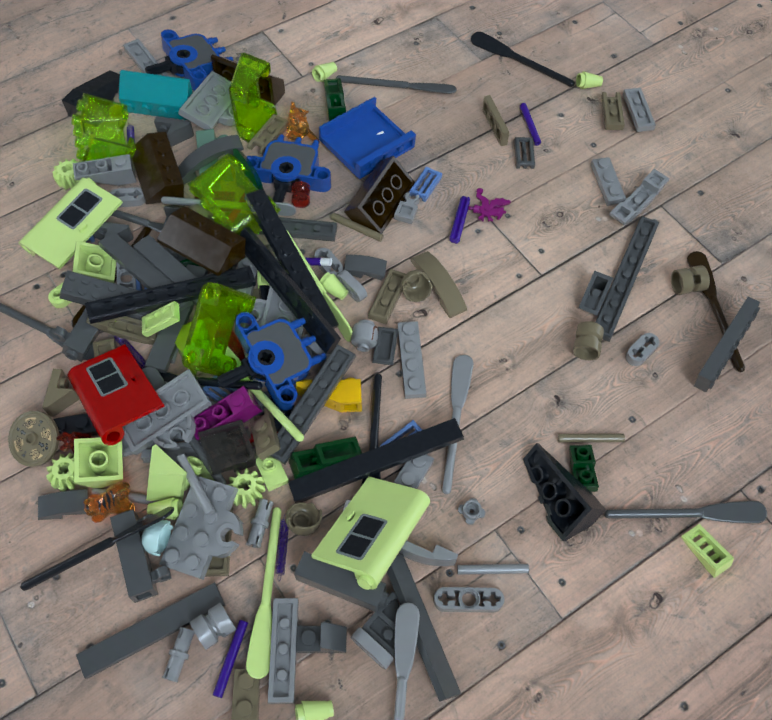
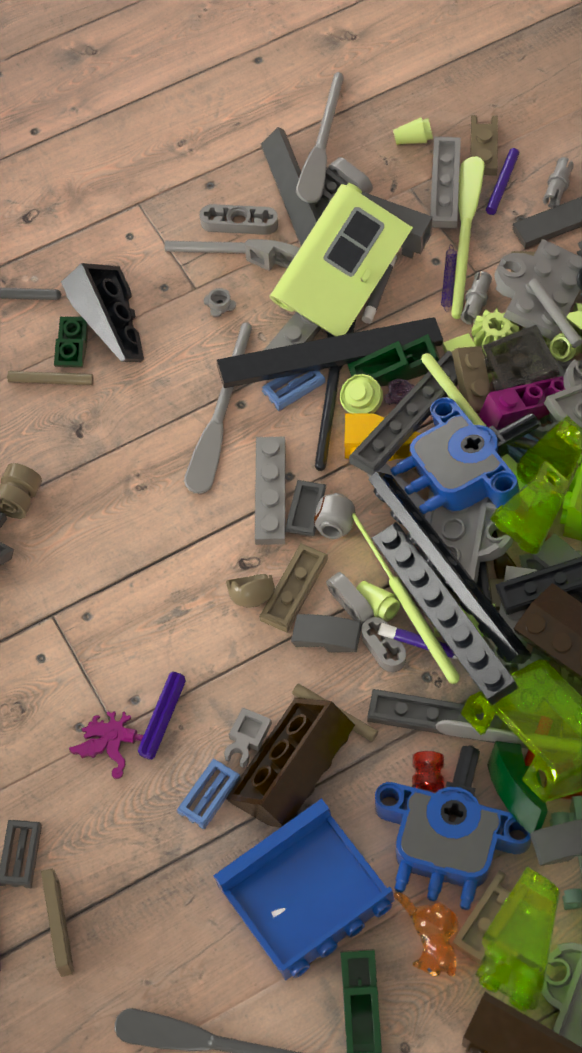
camera: 170 degrees left, 0 degrees up
(212, 626) = (526, 197): light grey wheel -> none
(303, 518) = (422, 293): dark tan hair -> none
(321, 430) = (395, 387): none -> plate
(321, 639) = (405, 191): dark grey slope -> none
(350, 427) = (361, 394): none -> yellowish green plate
(442, 283) = (216, 606): dark tan slope -> none

